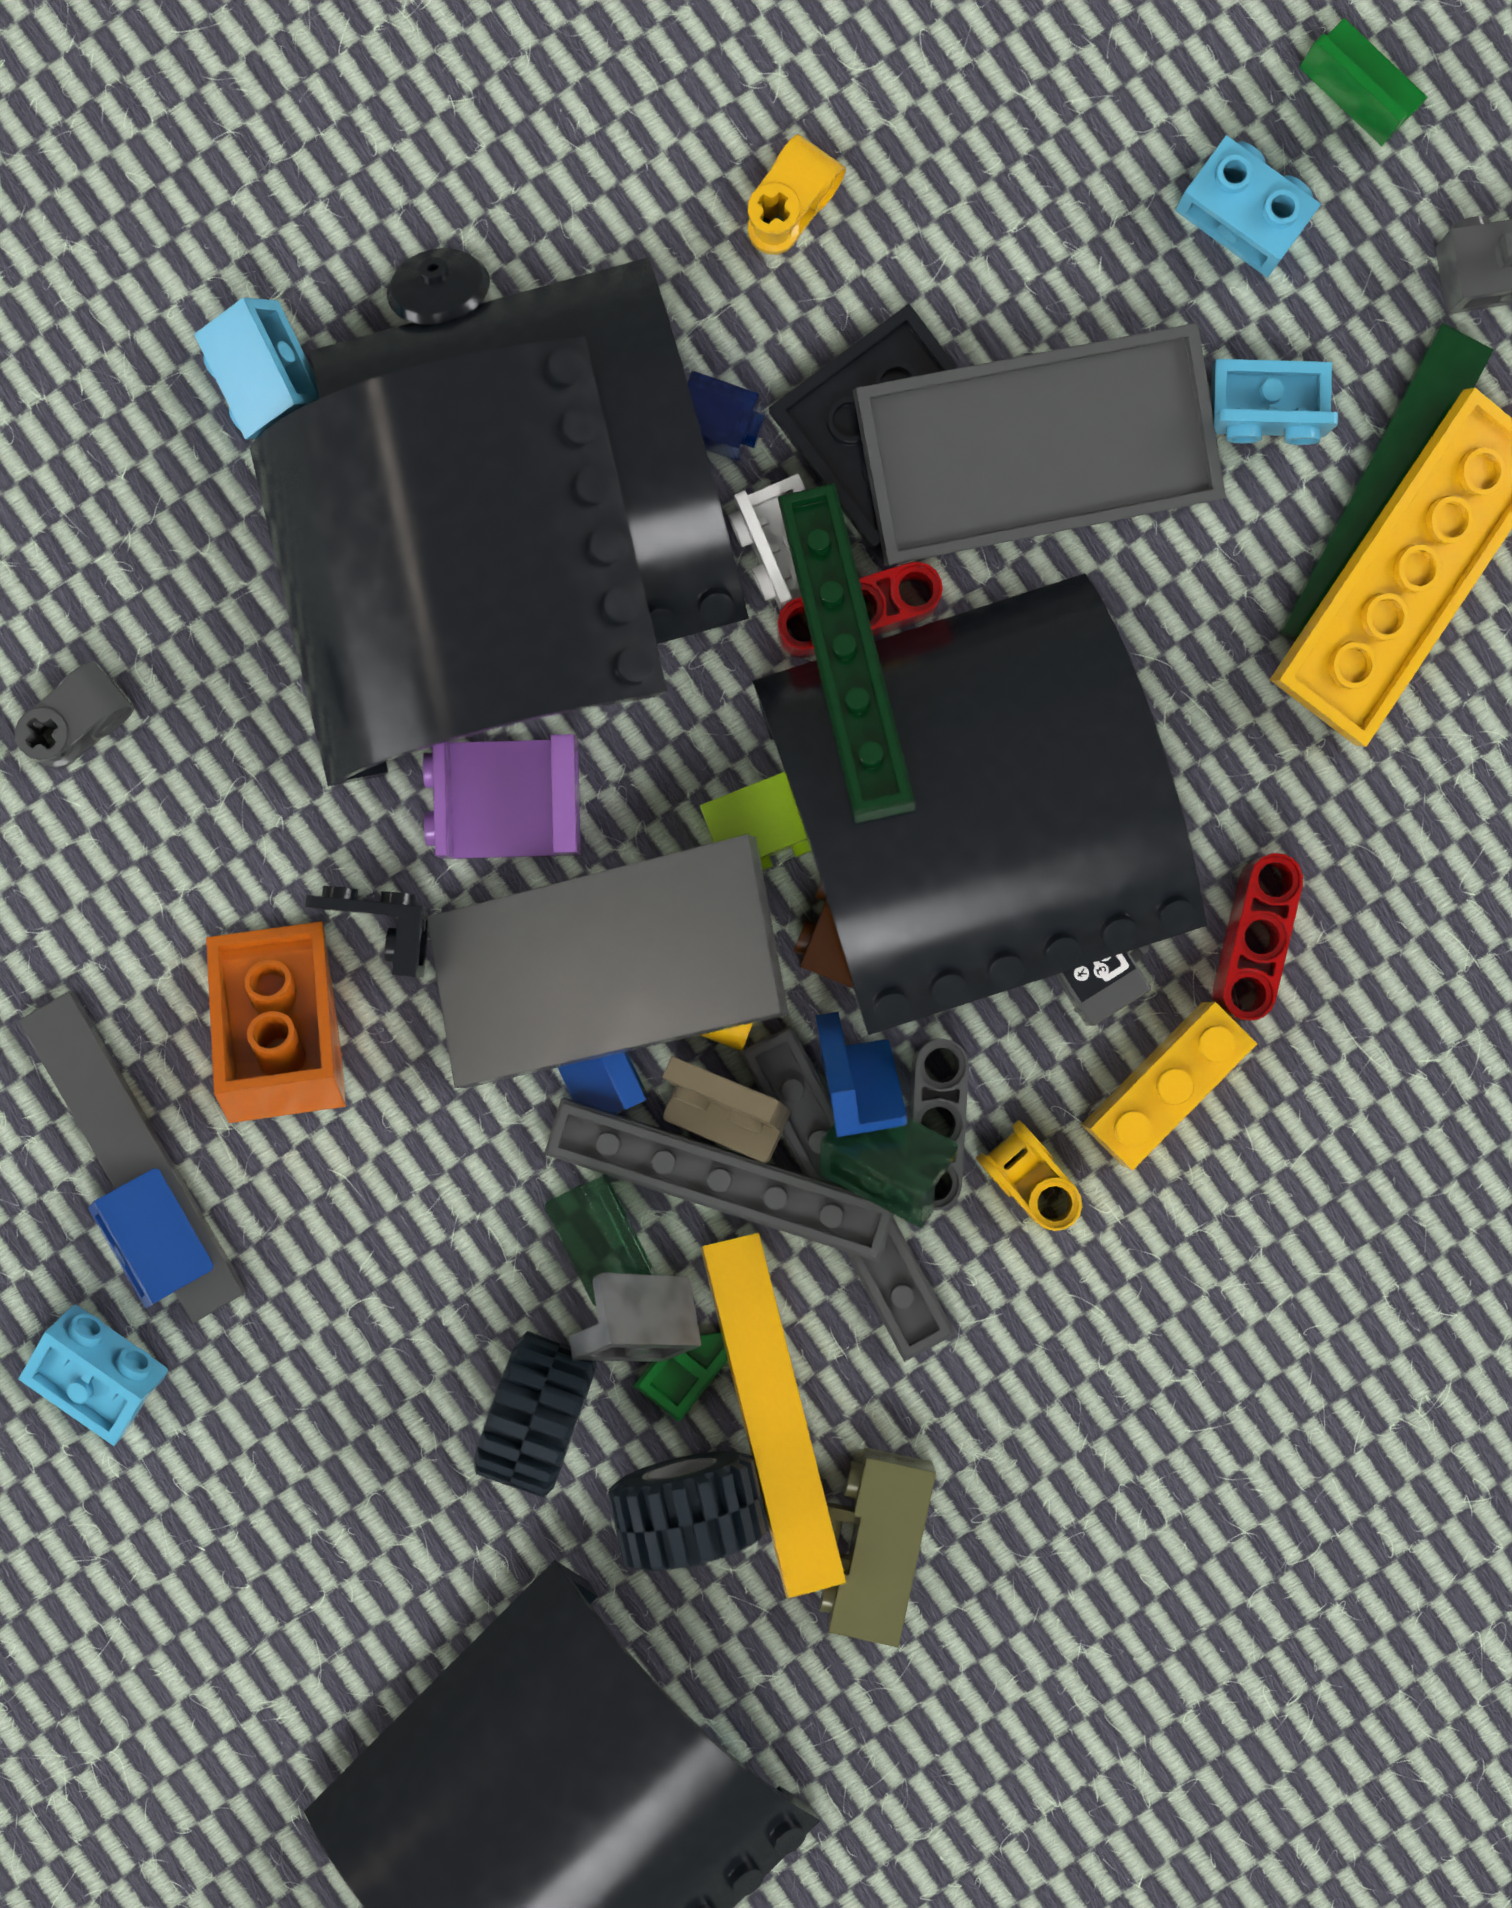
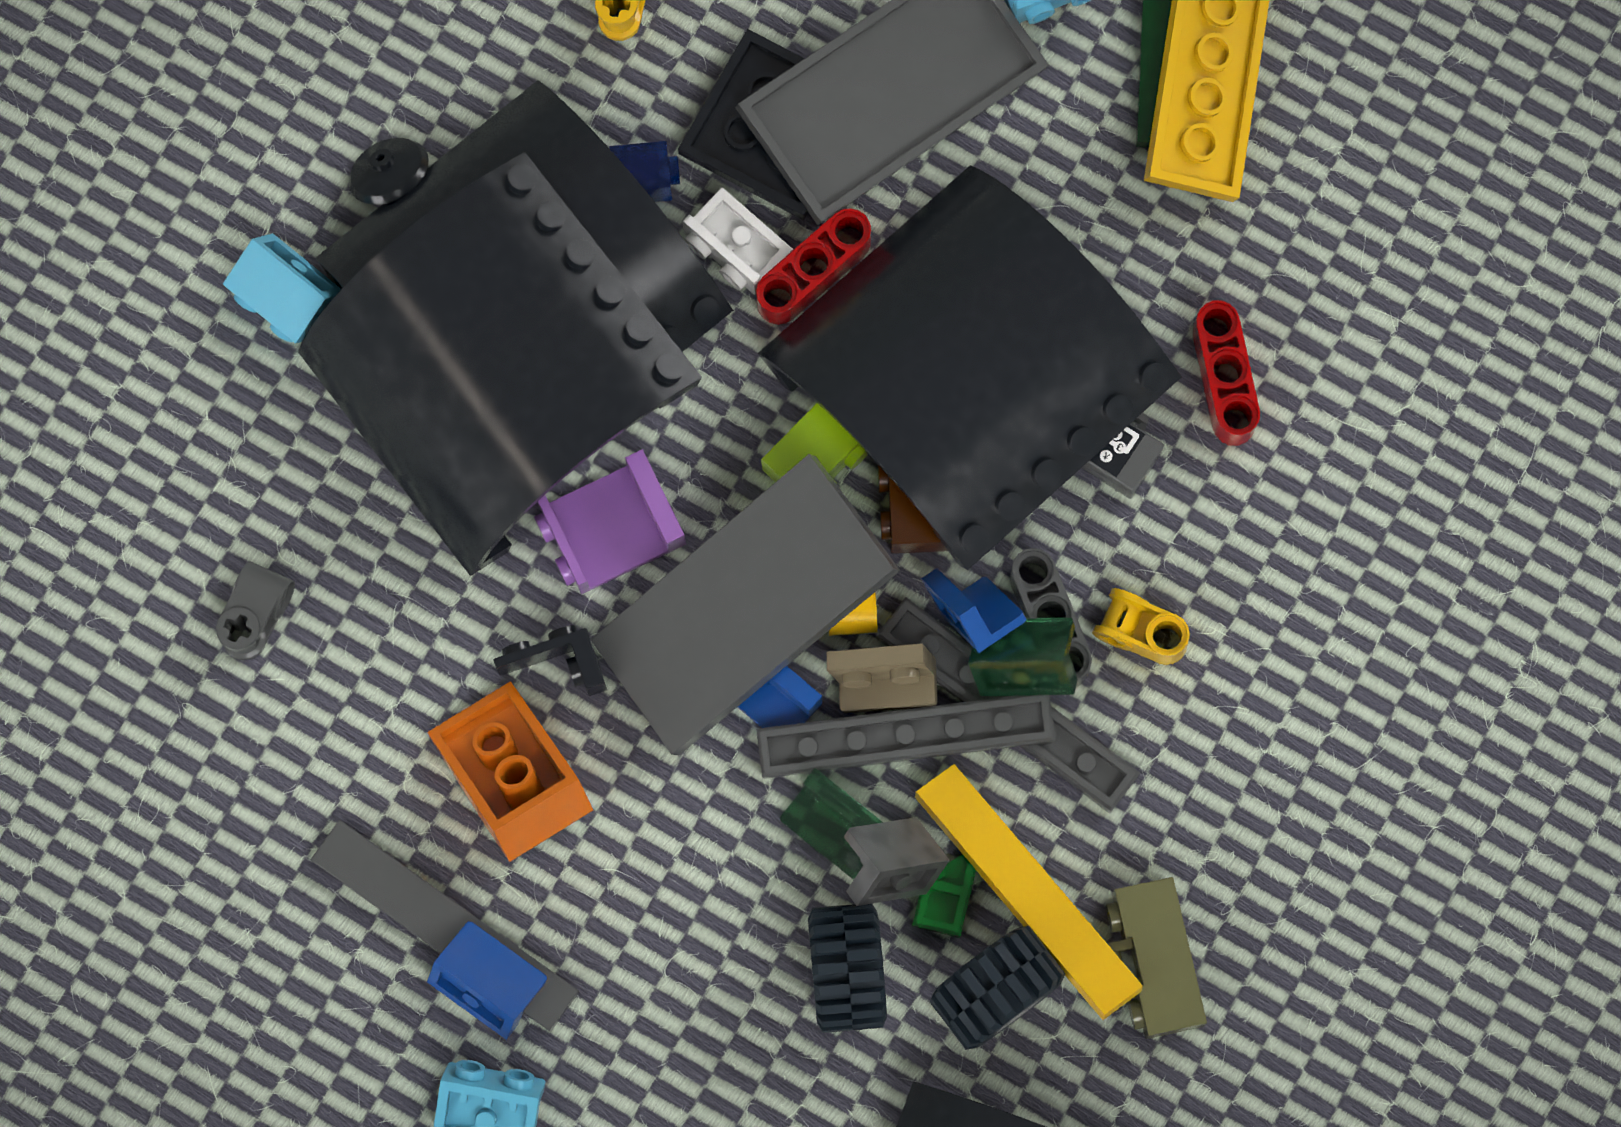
camera: 20 degrees left, 10 degrees down
(846, 654) = (819, 295): dark green tile -> none
(1169, 1084) = (1211, 510): yellow brick -> none

